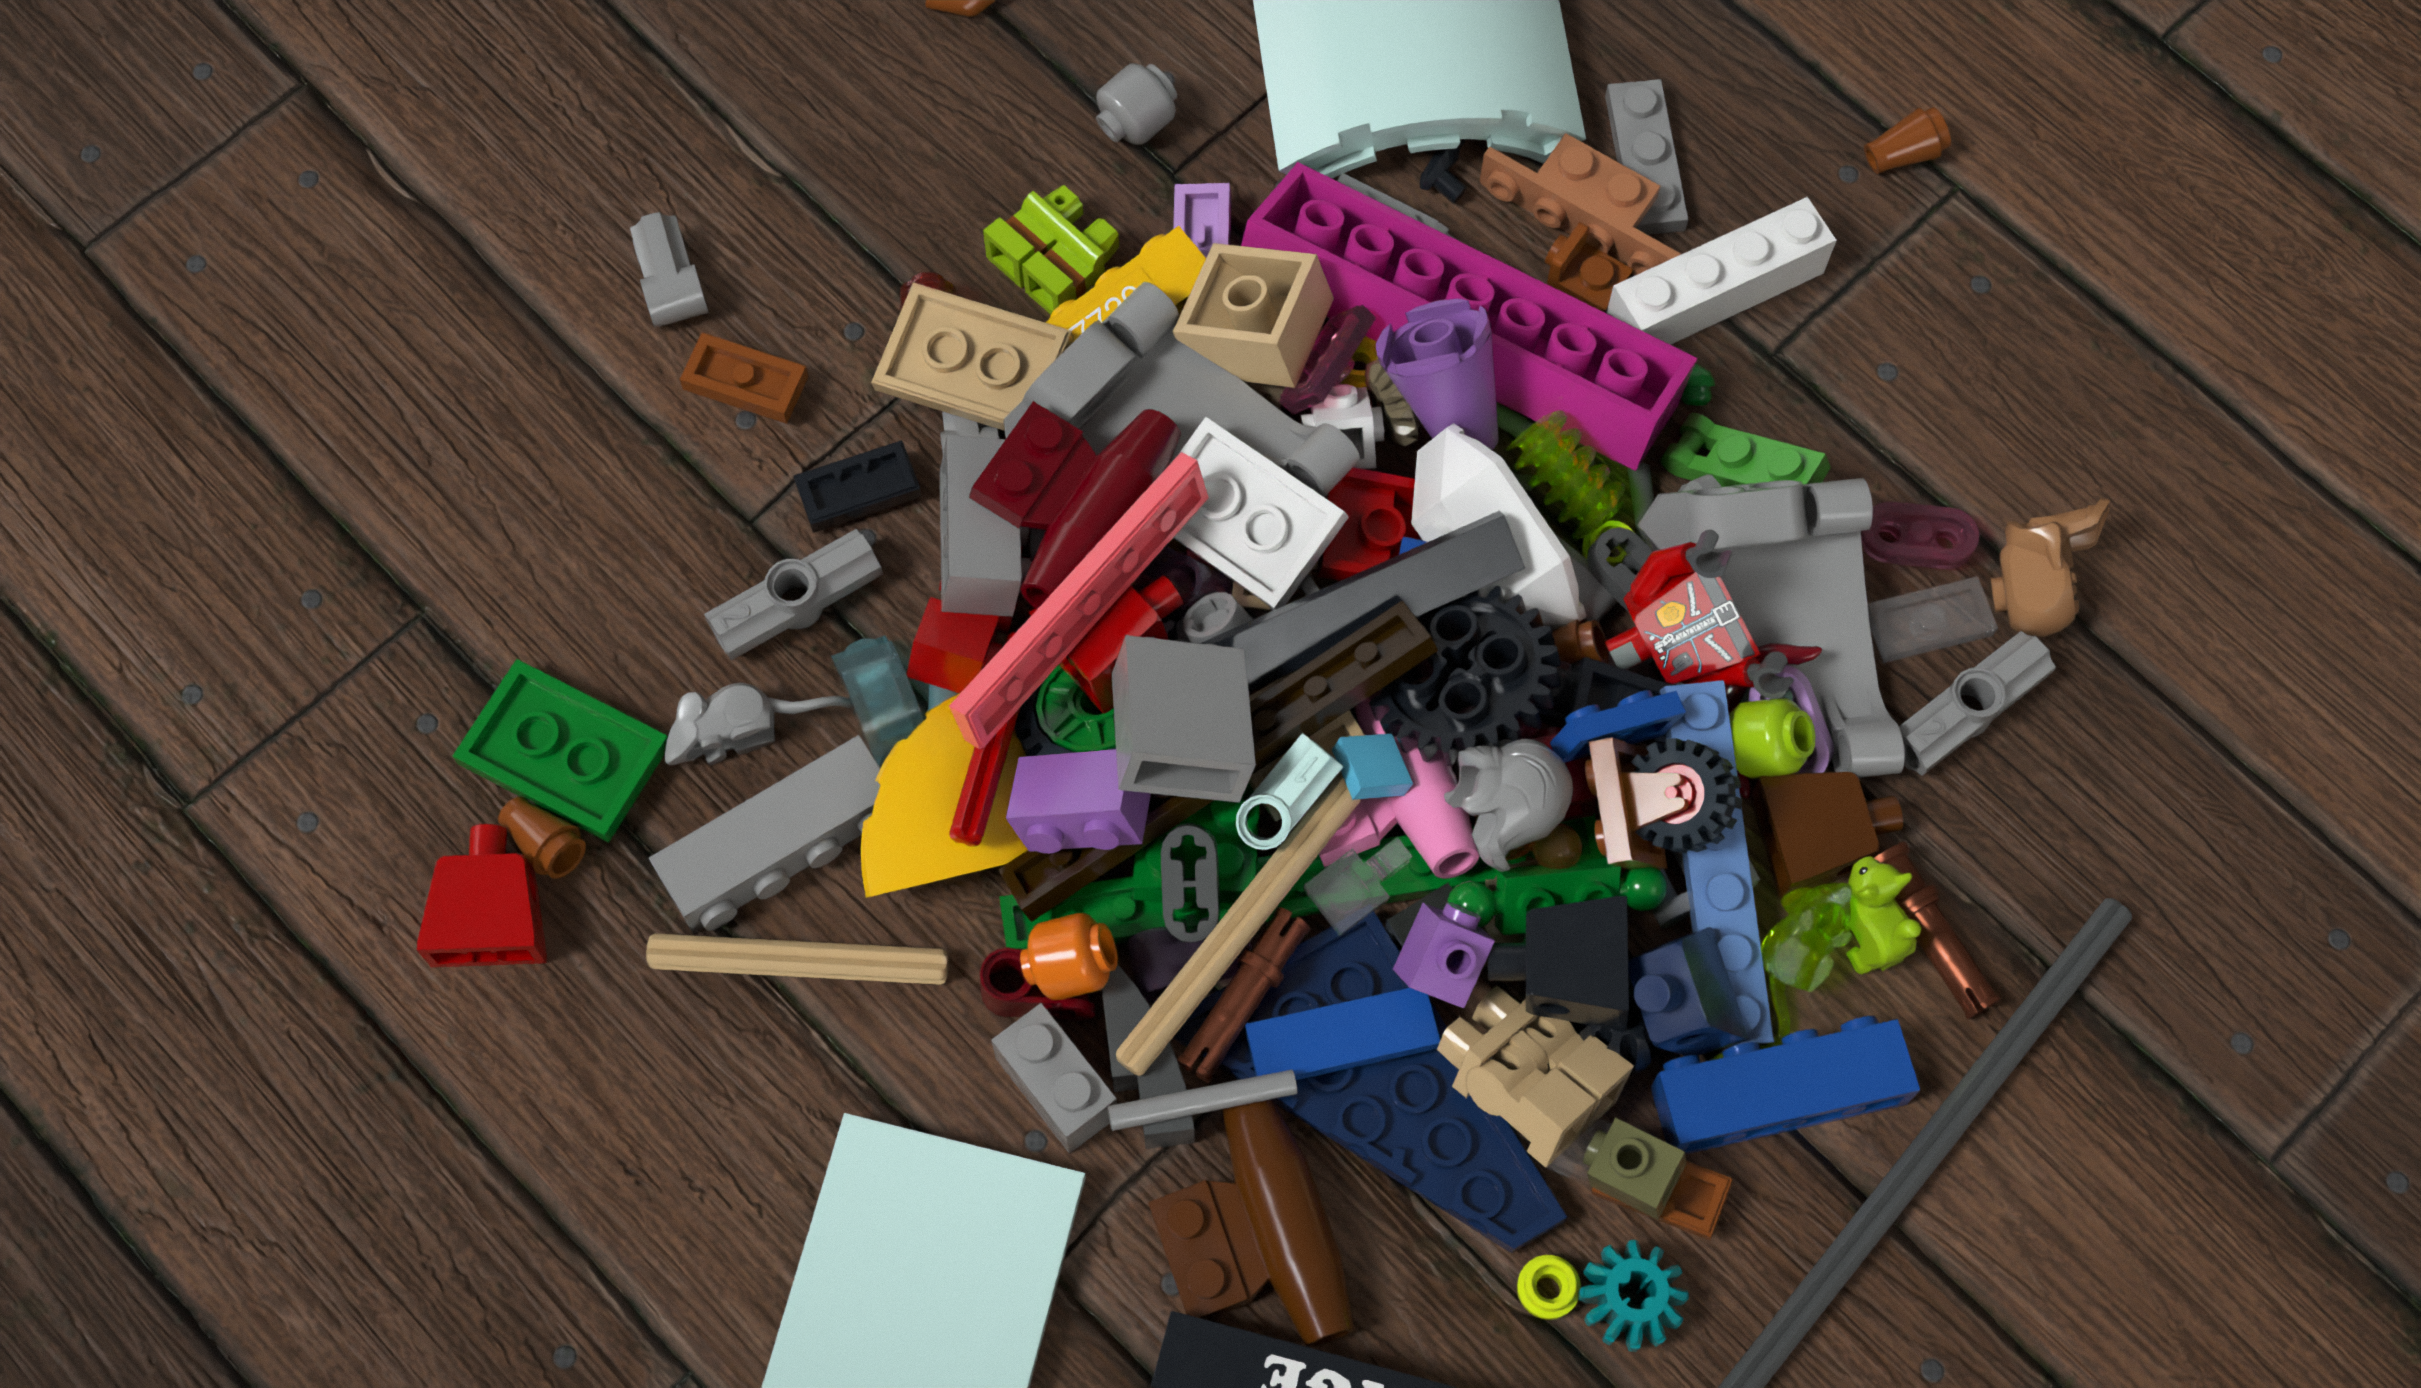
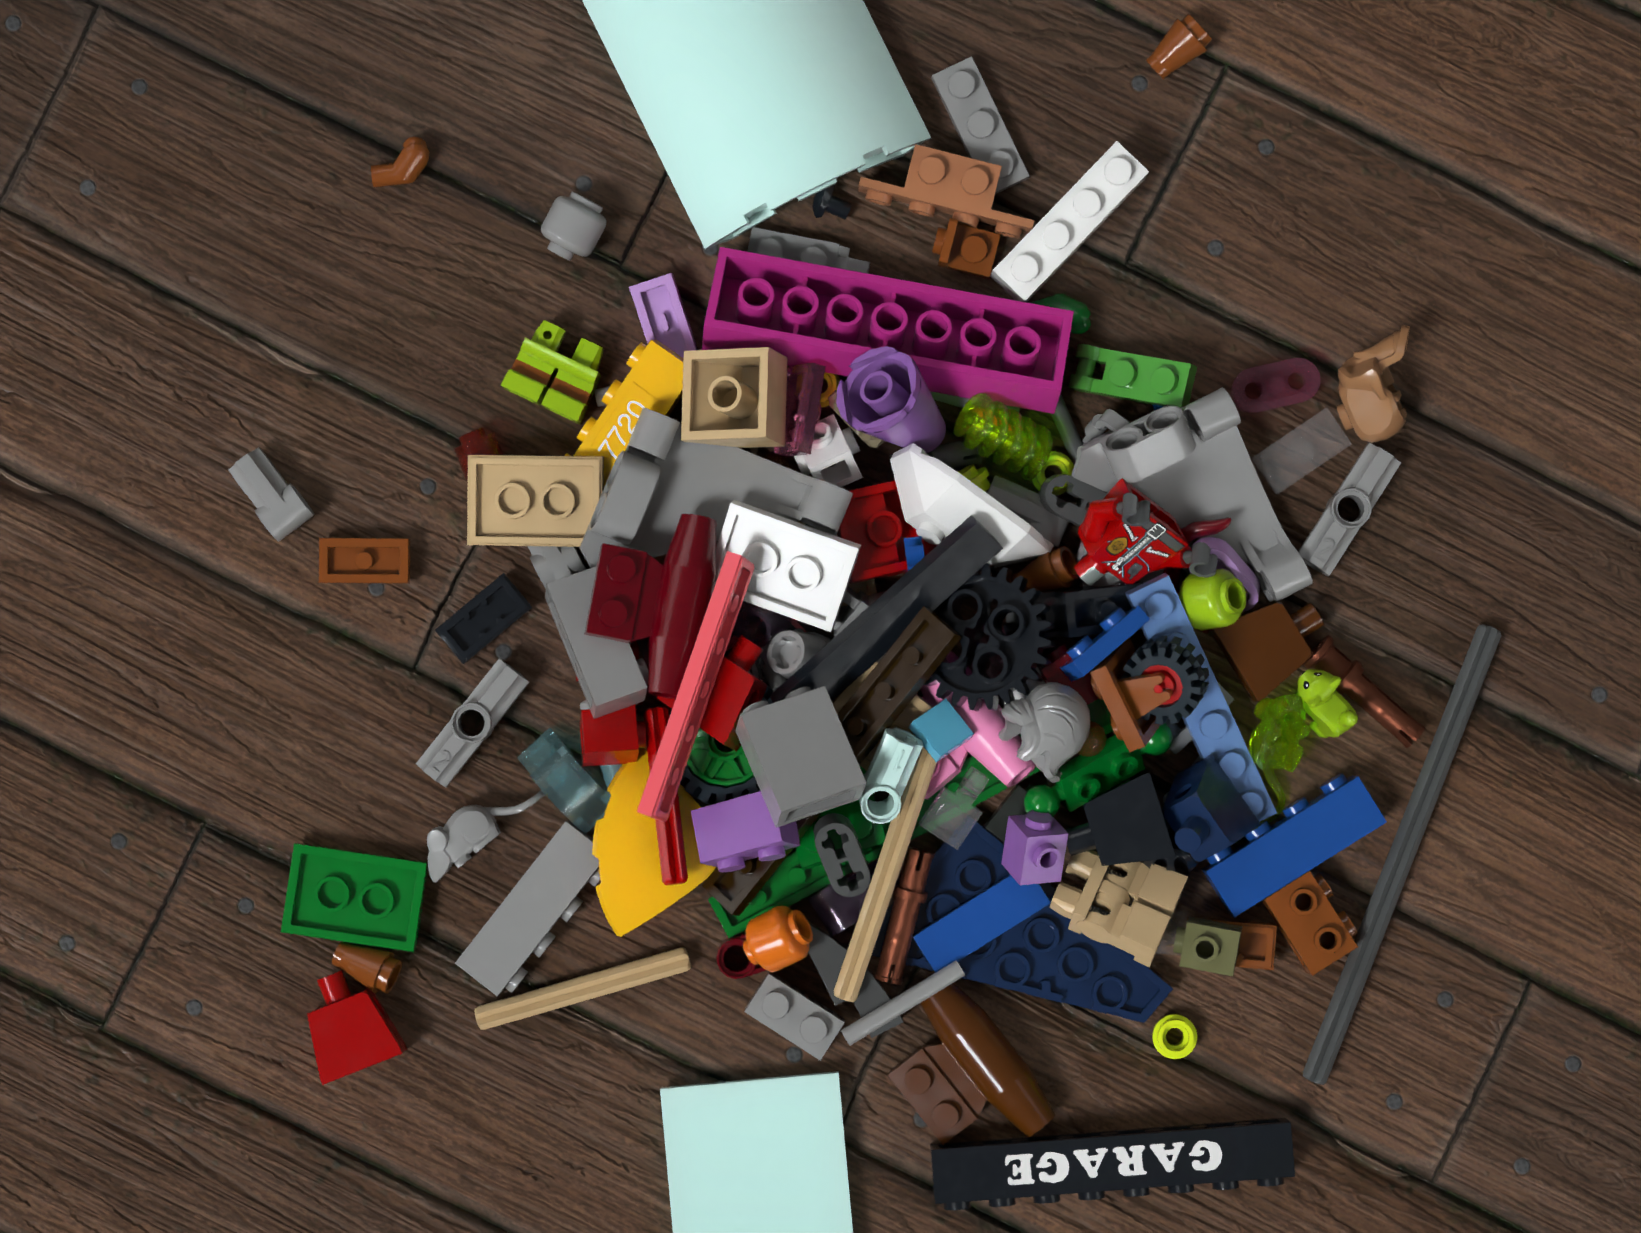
camera: 20 degrees left, 20 degrees up
(1654, 1310) = (1246, 1032): teal gear -> none
(1778, 1192) = (1311, 923): none -> dark orange brick

